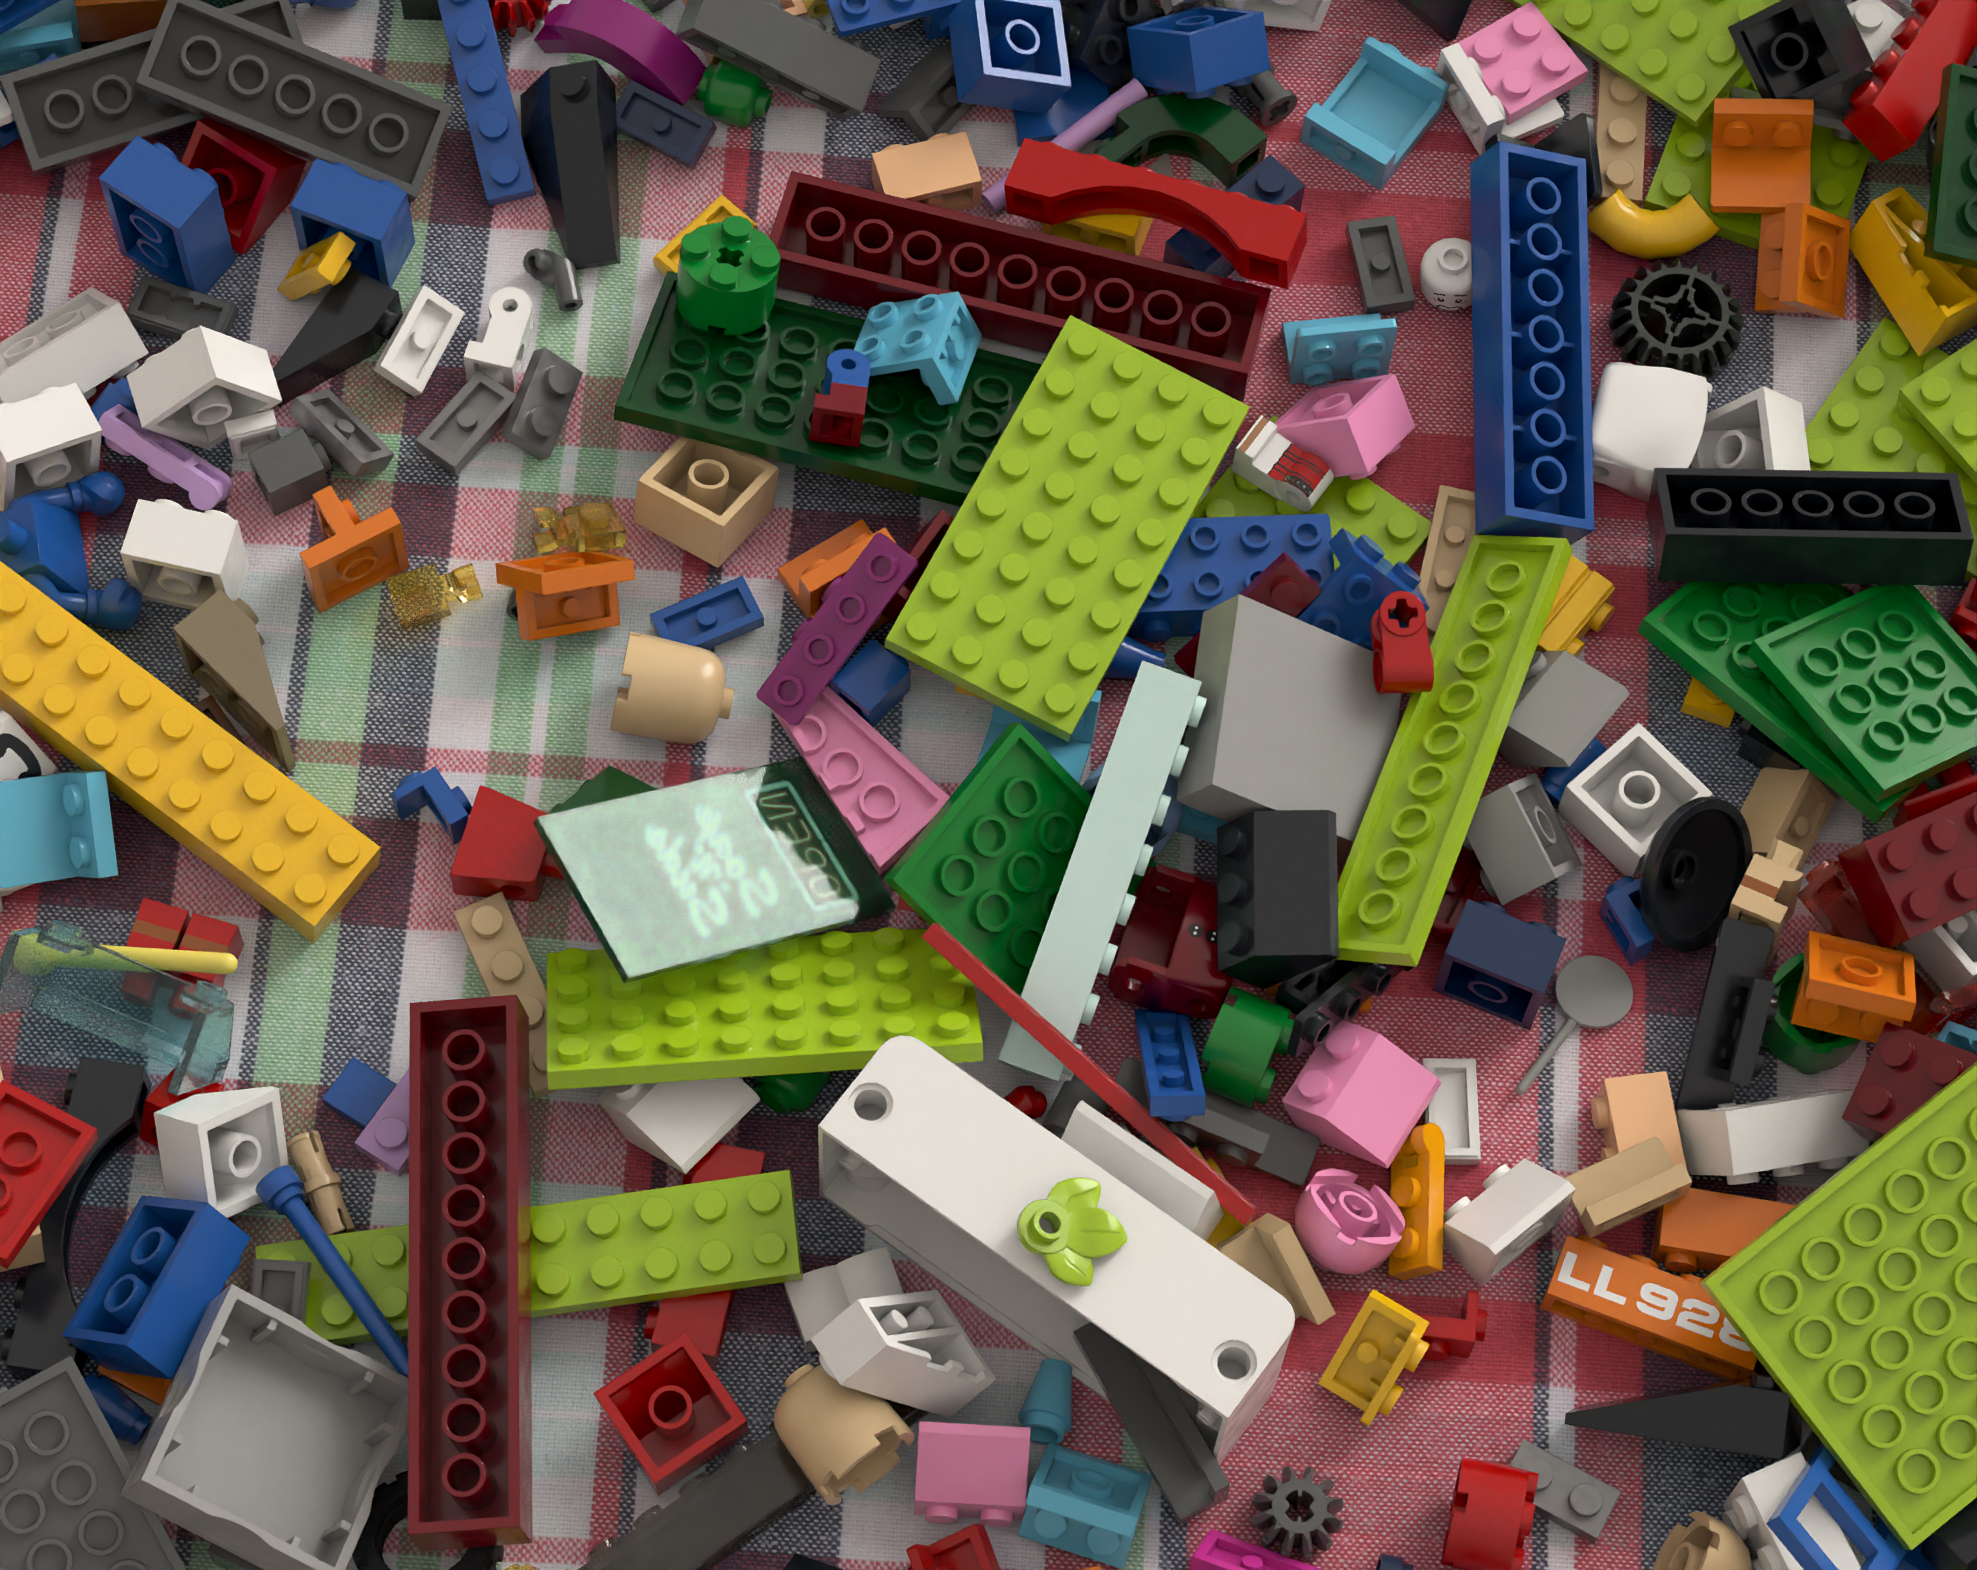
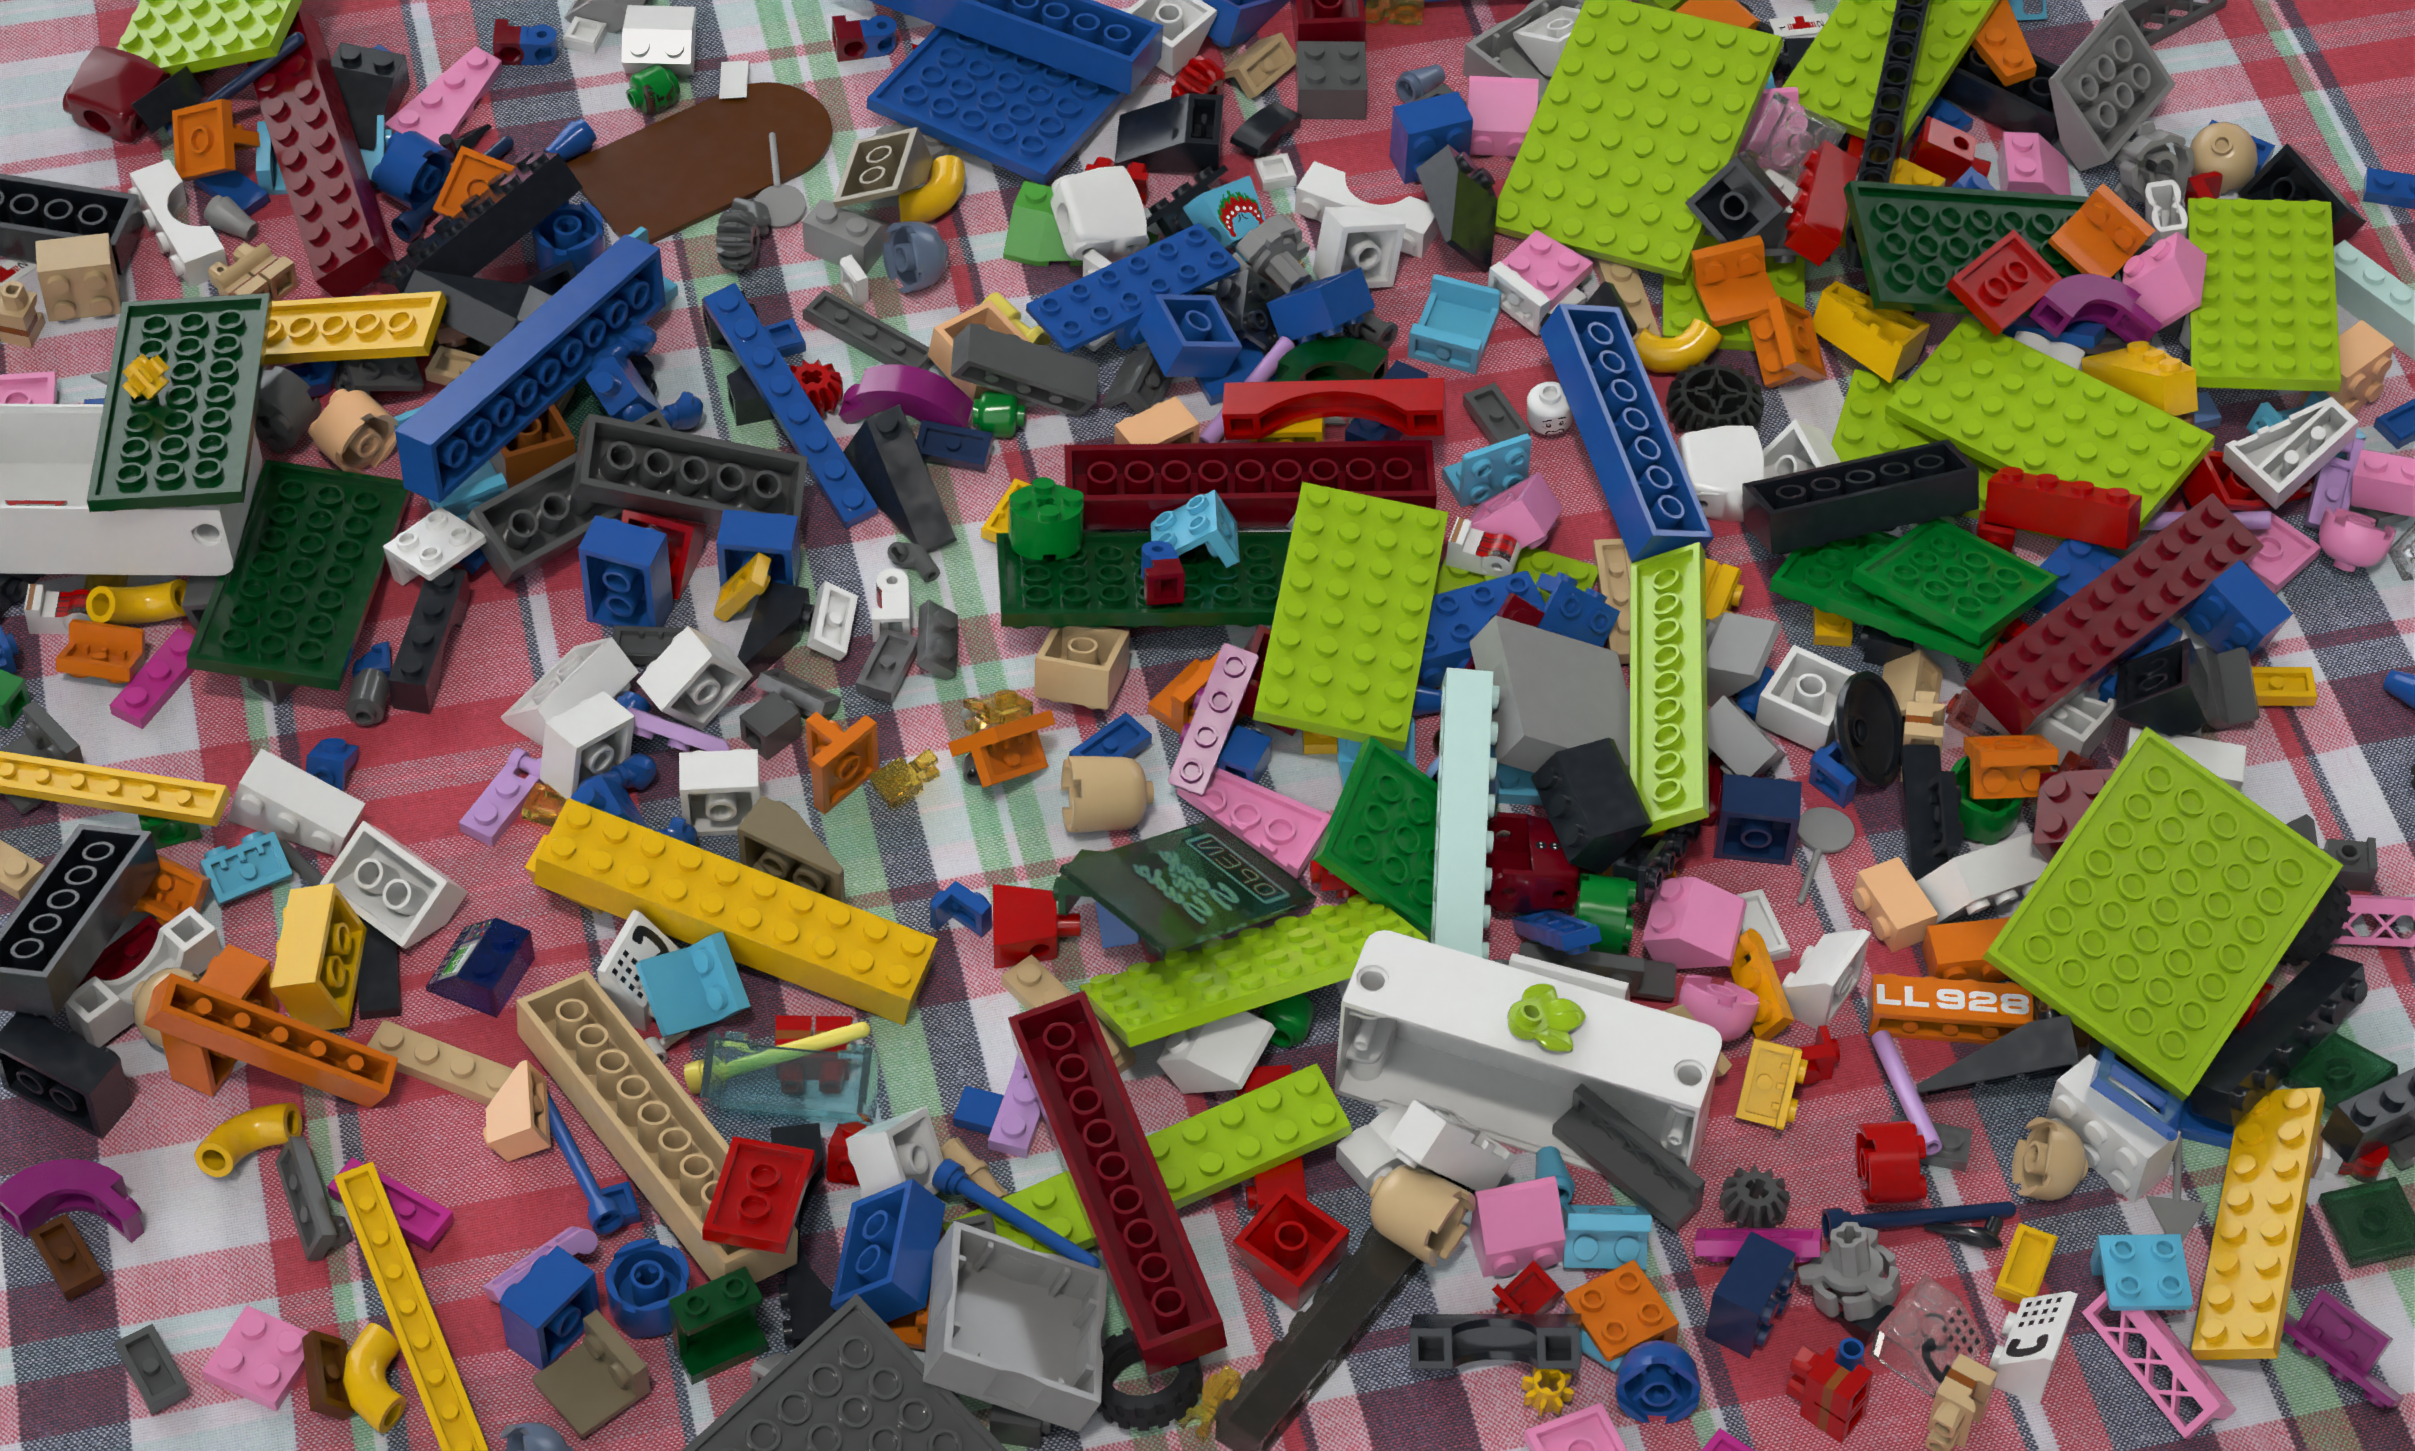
camera: 15 degrees left, 15 degrees down
(251, 433) = (731, 706): white tile -> none
(1088, 1072) = (1462, 927): red tile -> none
(1401, 654) = (1614, 631): red piece -> none
(1551, 1417) = (1906, 1090): none -> lavender piece
(1627, 1186) = (1904, 931): tan panel -> none

